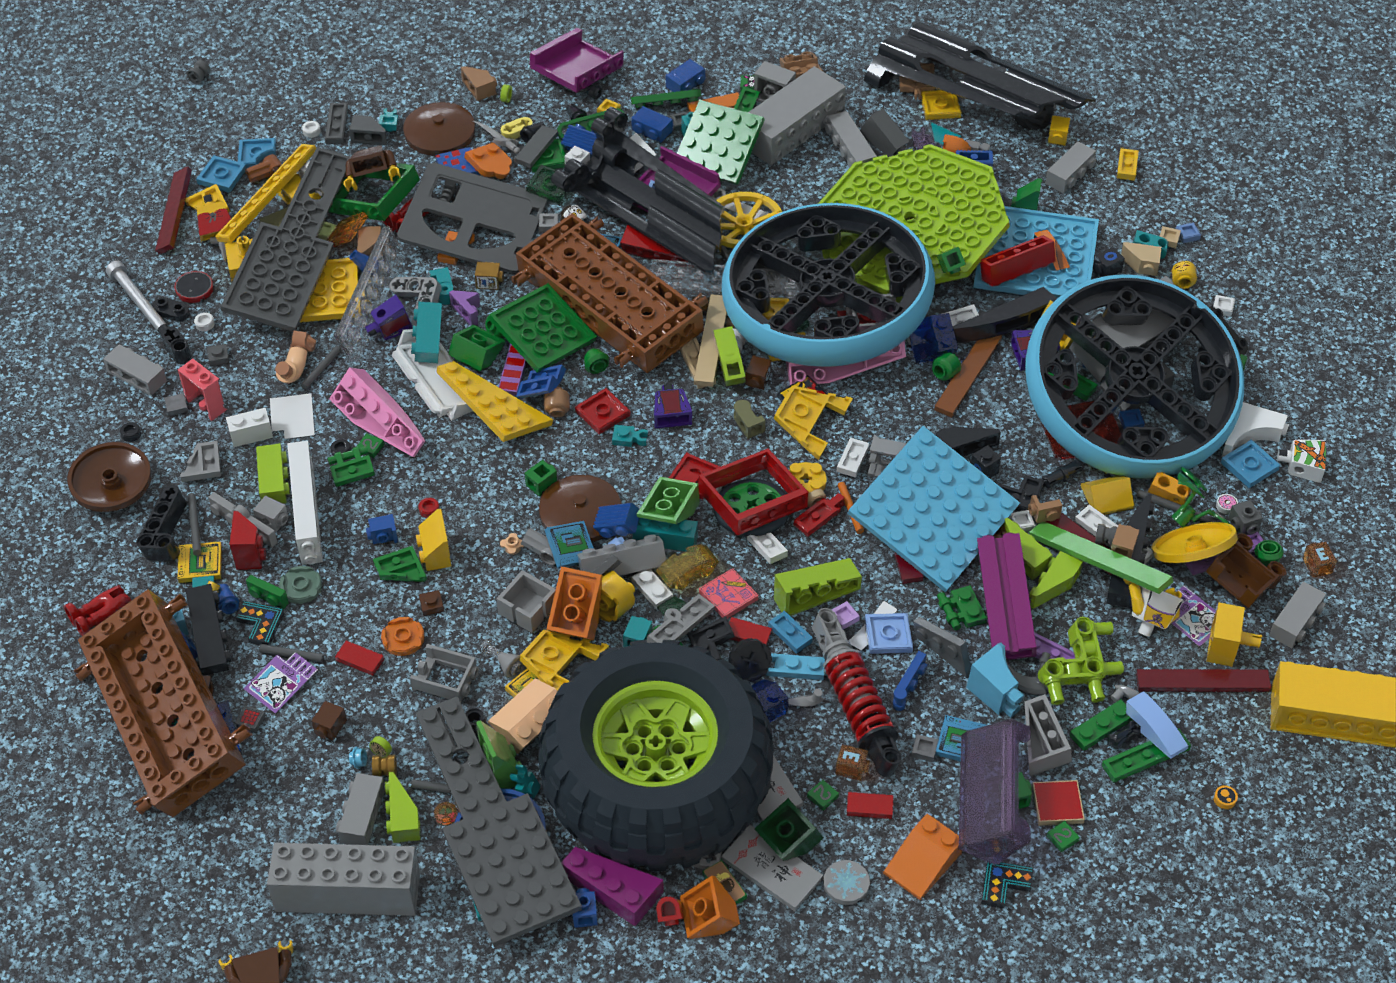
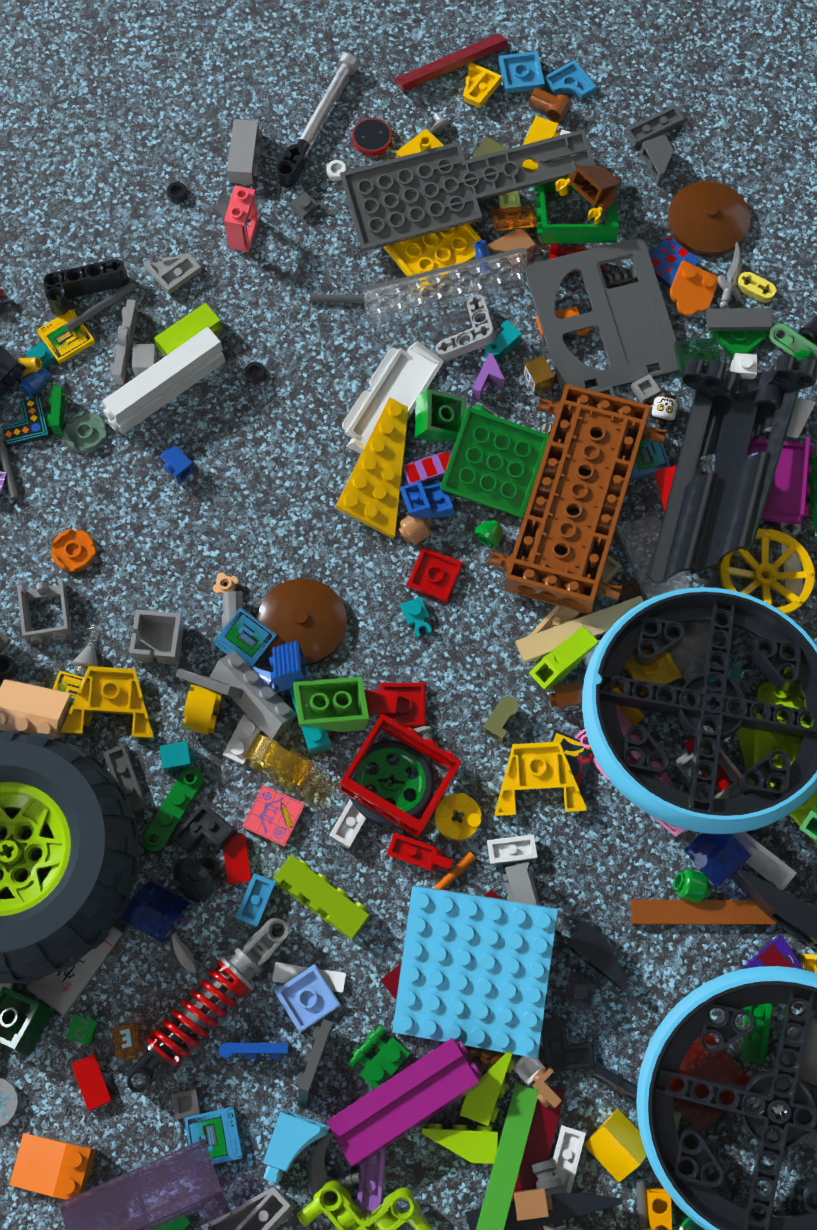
camera: 60 degrees right, 20 degrees up
(109, 477) = (109, 208): reddish brown dish -> none
(171, 309) = (334, 133): black plate -> none
(211, 217) = (454, 100): torso -> none
(246, 544) = (94, 359): red slope -> none
(249, 427) = (230, 283): white brick -> none
(265, 193) = (509, 123): yellow tile -> none
(293, 415) = (273, 309): white sticker -> none
(296, 359) = (325, 275): piece -> none
(311, 129) = (631, 110): white tile -> none
(351, 470) = (231, 398): green plate -> none
(359, 658) = (30, 528): red tile -> none
(373, 444) = (272, 395): green tile -> none
(376, 411) = (310, 376): bright pink wedge -> none
(389, 120) = (685, 169): teal plate -> none
(389, 319) = (425, 322): dark purple torso -> none
(400, 566) = (147, 503): green wing -> none
(427, 332) = (425, 363): teal brick -> none
(428, 506) = (229, 487): red tile -> none
(431, 602) = (122, 553): reddish brown plate -> none
(434, 542) = (183, 518): yellow slope -> none
(479, 82) = (793, 217): medium nougat slope -> none
(506, 93) = (795, 249): lime tile -> none
(528, 131) = (758, 301): black cone -> none
(540, 477) = (314, 559): green brick -> none
(576, 604) = (161, 686): orange slope -> none
(578, 137) = (770, 349): blue brick -> none
(671, 408) = (472, 637): dark purple torso -> none
(673, 602) = (229, 771): clear green slope -> none
(680, 622) = (204, 790): light grey hinge -> none
(797, 667) = (220, 927): medium azure hinge -> none
(815, 496) = (436, 839): tan tile -> none
(846, 615) = (298, 944): lavender tile -> none
(1131, 418) = (735, 1127): blue plate -> none

